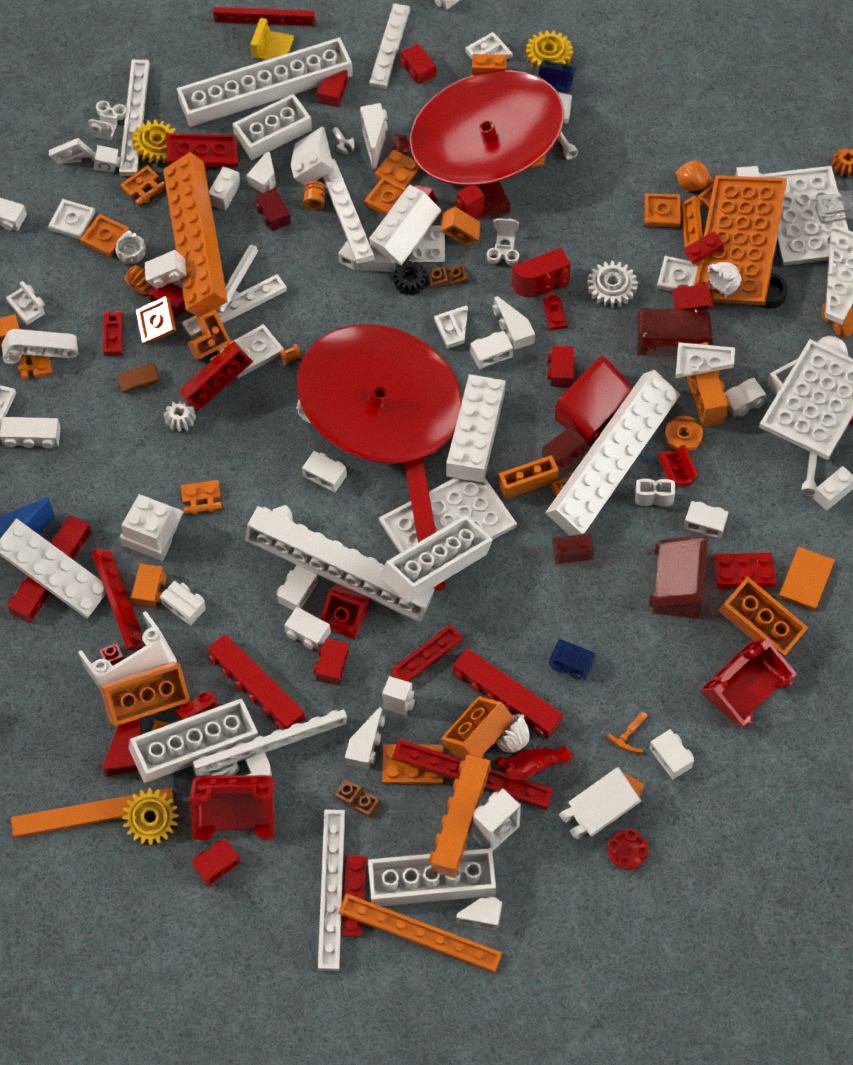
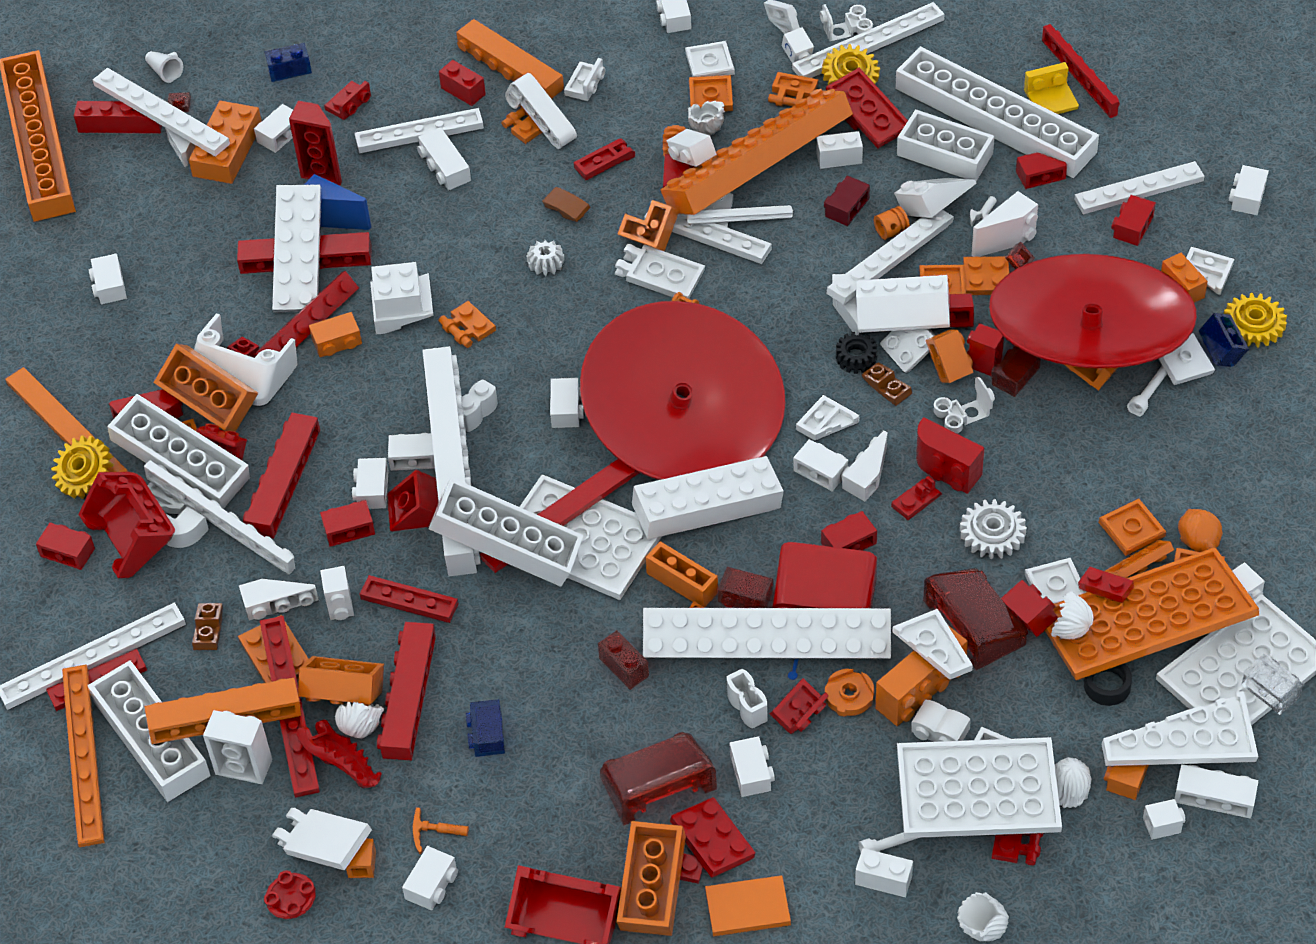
camera: 60 degrees right, 10 degrees down
(156, 320) = (638, 180): plate -> none
(183, 602) = (335, 371): white brick -> none
(215, 376) = (604, 255): red slope -> none
(262, 174) = (885, 169): white slope -> none
(482, 914) = (136, 798): white slope -> none

